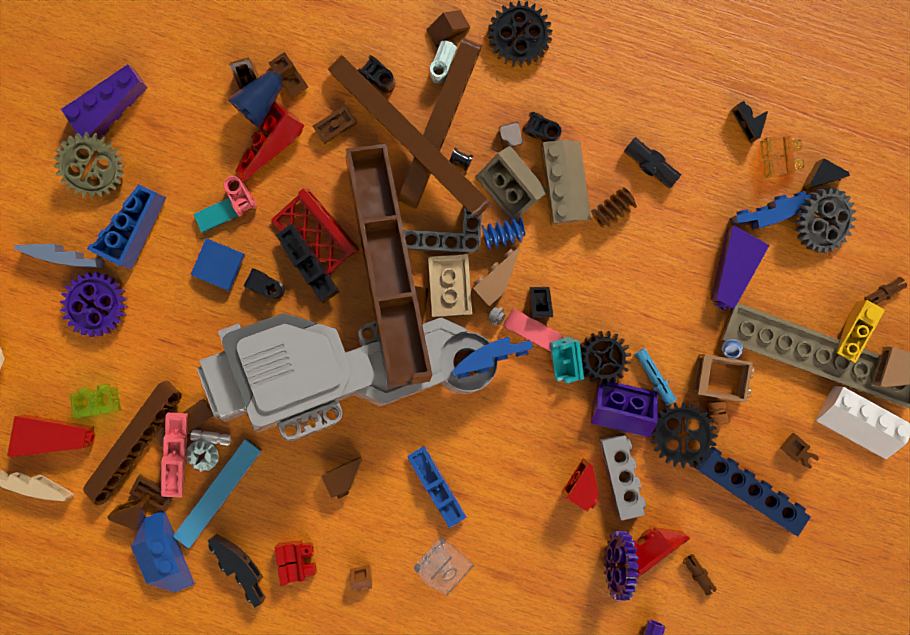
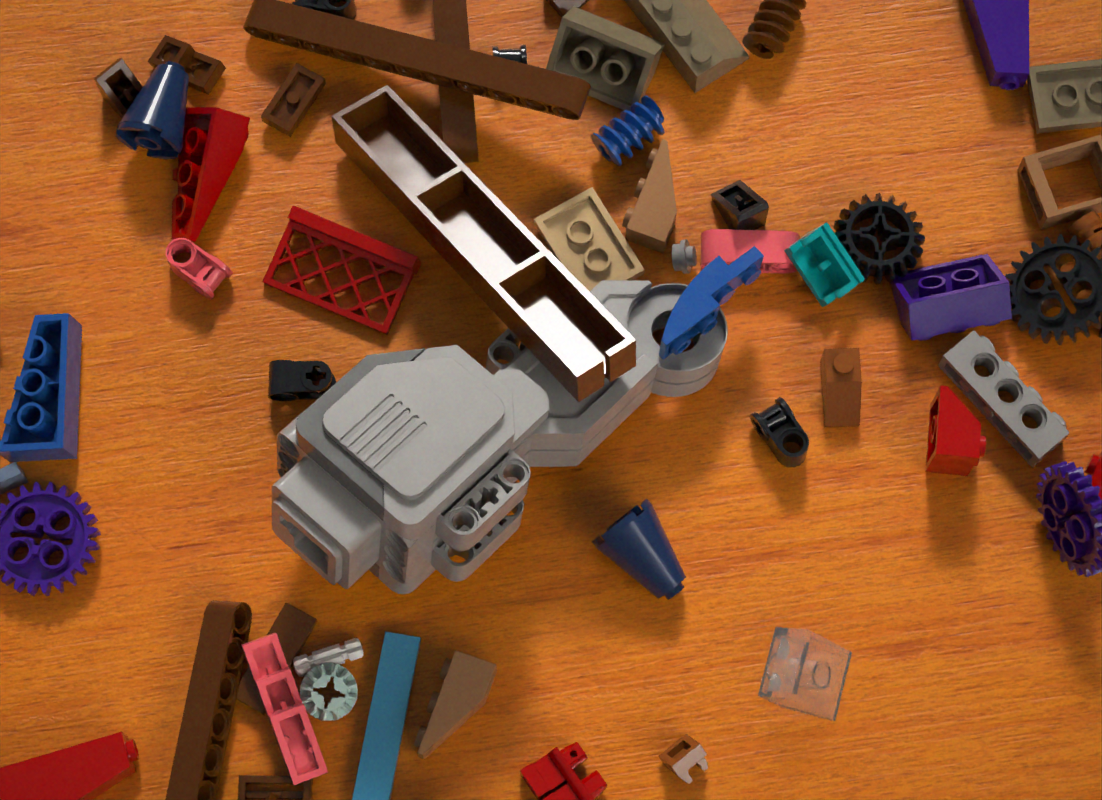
camera: 25 degrees left, 15 degrees down
(95, 401) = (119, 697): clear neon green brick -> none
(215, 215) = (173, 316): teal tile -> none
(217, 264) = (211, 386): blue slope -> none
(269, 490) = (461, 696): none -> medium nougat slope
(308, 263) = (351, 313): black slope -> none
(341, 478) = (571, 614): reddish brown slope -> none
(393, 463) = (643, 551): none -> dark blue cone
(437, 487) = (729, 556): blue slope -> none
(441, 238) = (567, 170): dark grey beam -> none
(498, 435) = (779, 426): none -> black piece
(541, 428) = (841, 387): none -> dark orange slope
(655, 376) = (977, 233): dark azure pin -> none
(732, 348) = (1059, 131): medium blue plate -> none

